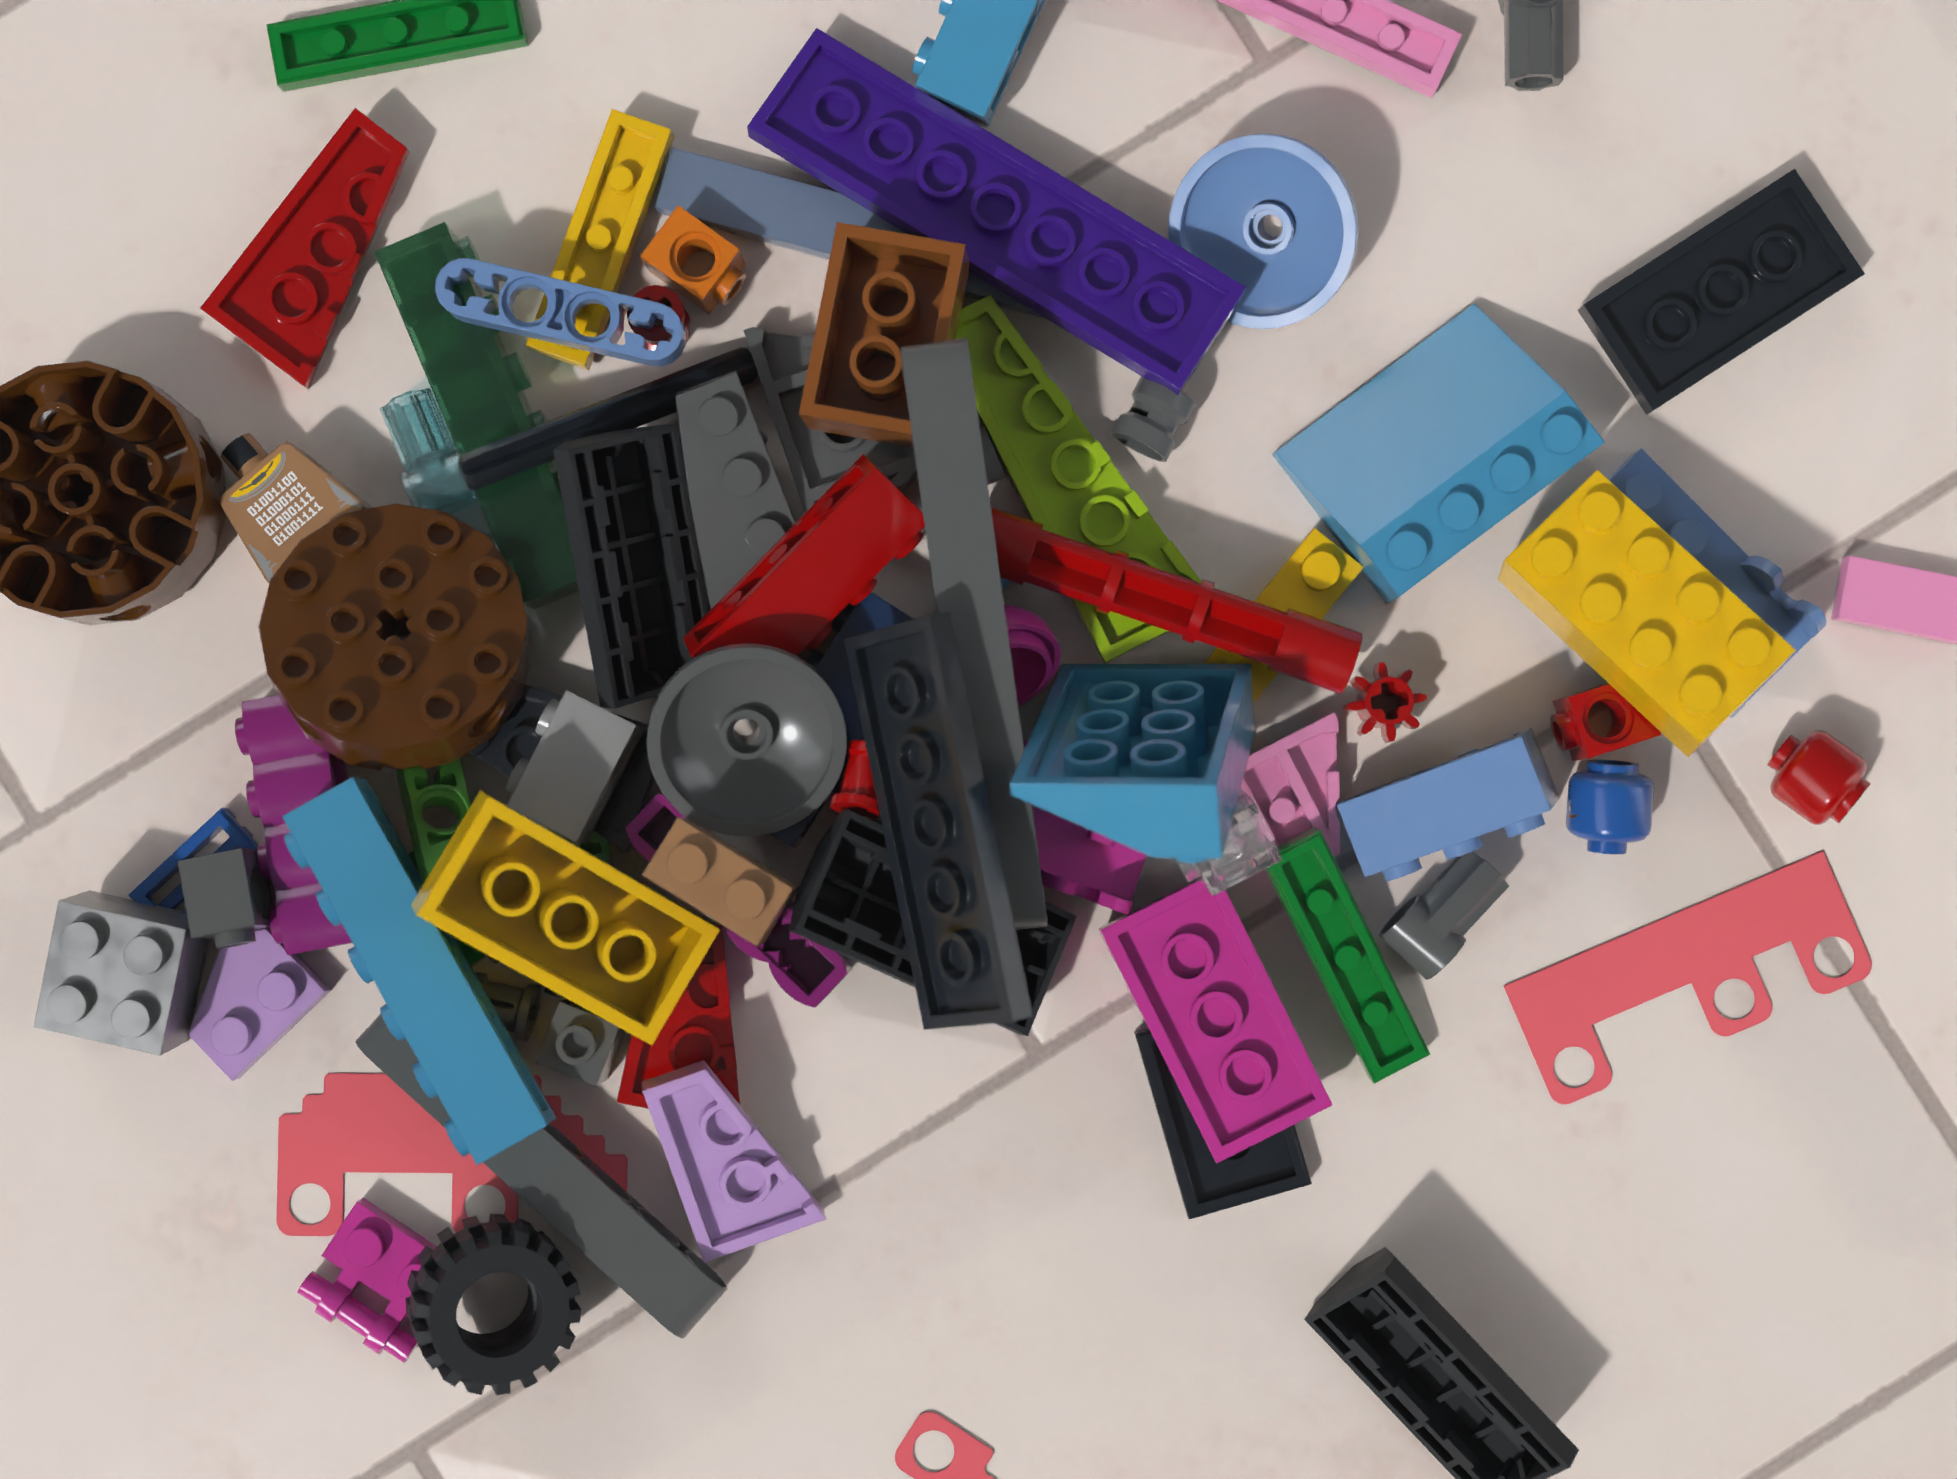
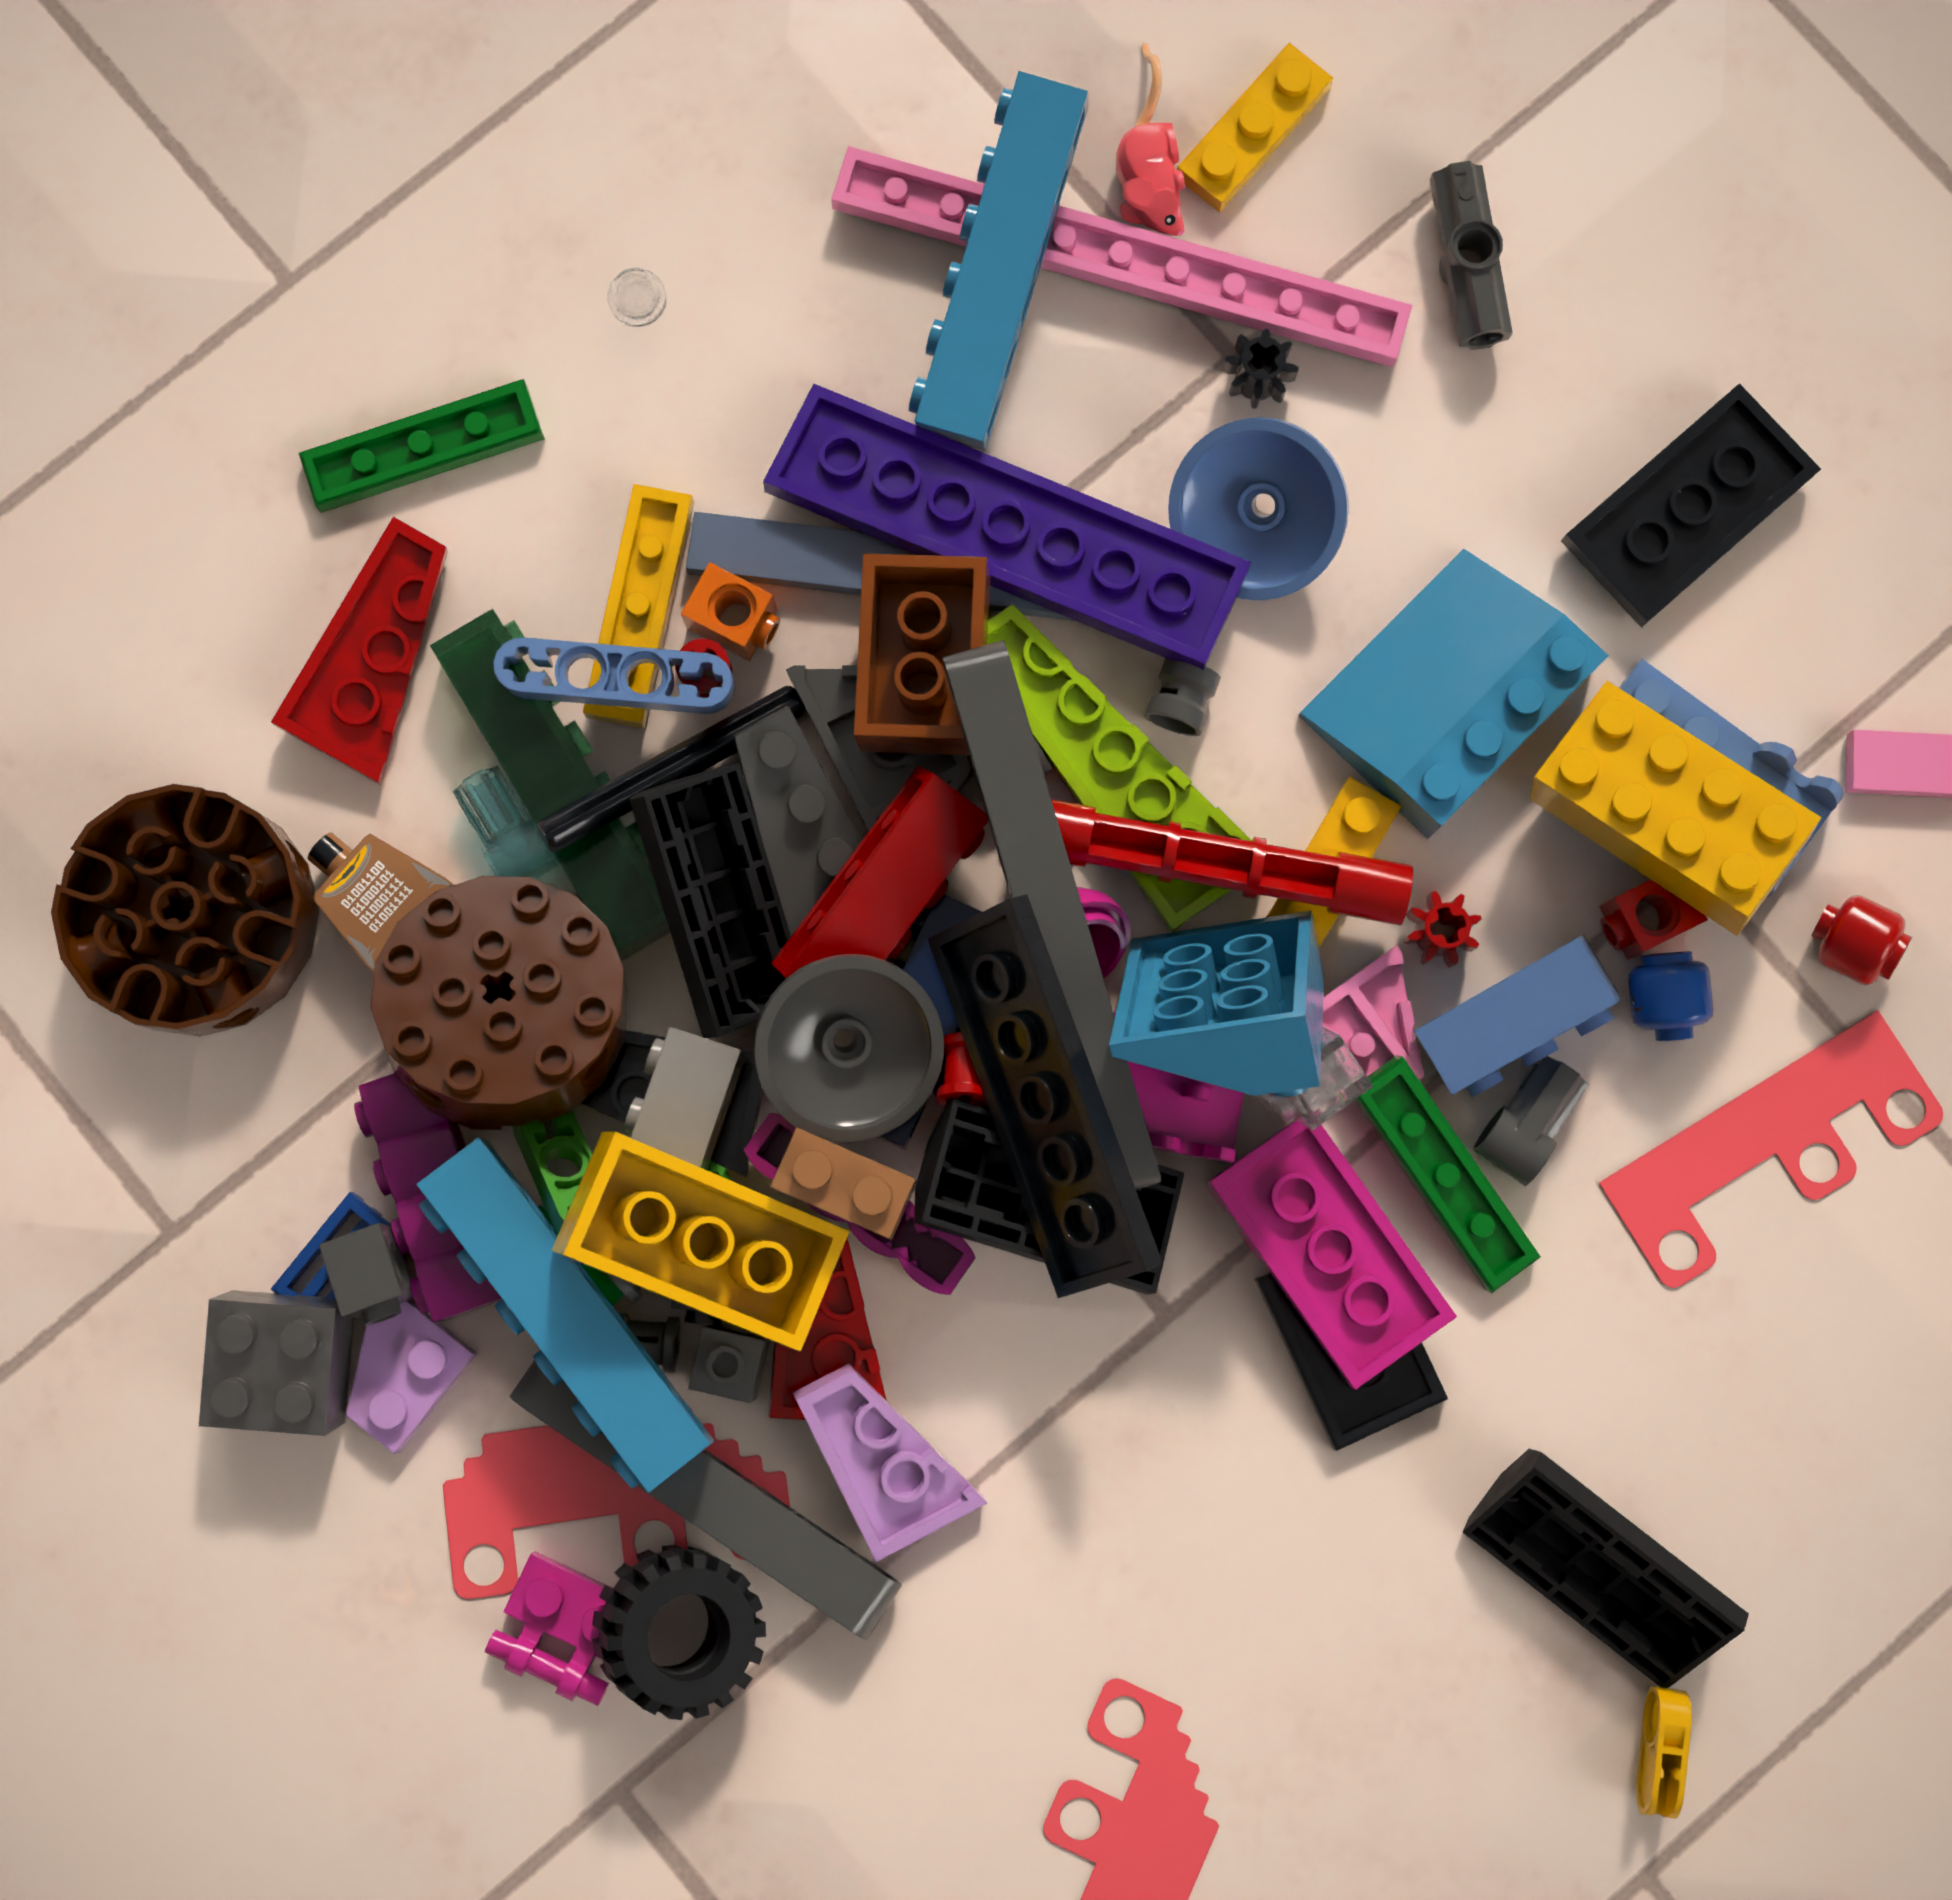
camera: 10 degrees left, 5 degrees down
(1285, 96) = (1260, 353): none -> black gear

